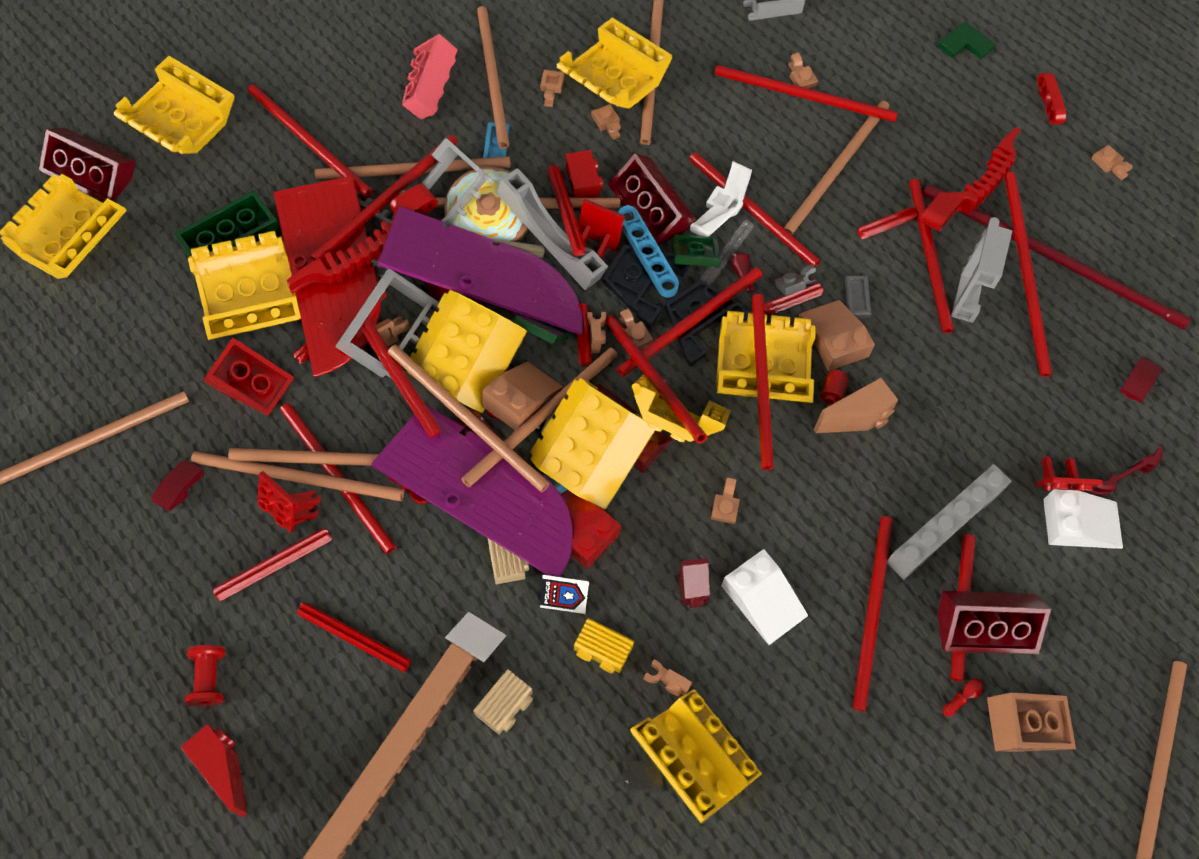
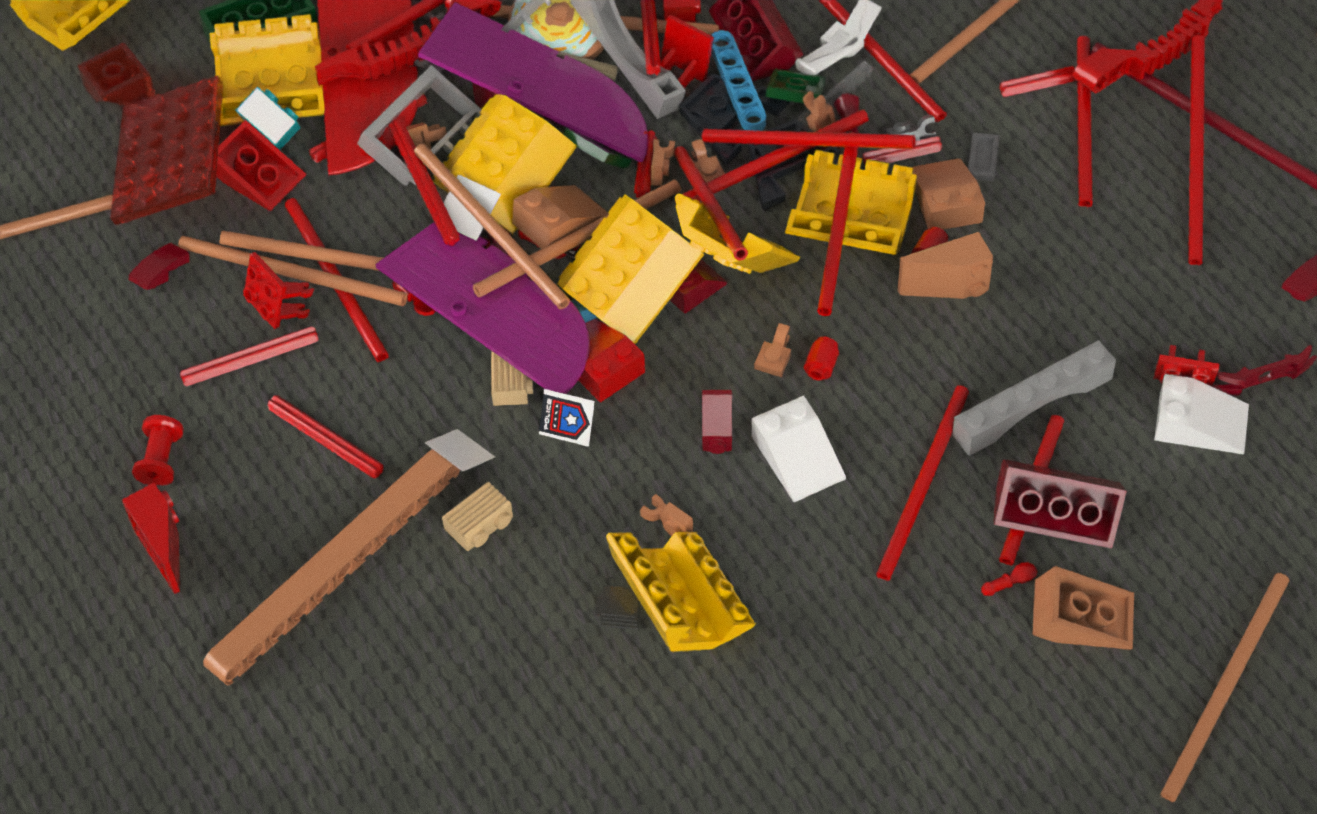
camera: 15 degrees right, 10 degrees down
(110, 303) = (116, 77): none -> clear red slope
(167, 373) = (167, 150): none -> clear red plate
(252, 331) = (268, 117): none -> white brick
(438, 410) = (461, 217): none -> white sticker
(603, 646) = (601, 476): yellow brick -> none
(722, 274) = (821, 113): none -> nougat plate
(723, 303) = (809, 138): none -> red piece
(767, 505) = (821, 358): none -> red brick
(991, 256) = (1118, 156): light grey hinge -> none

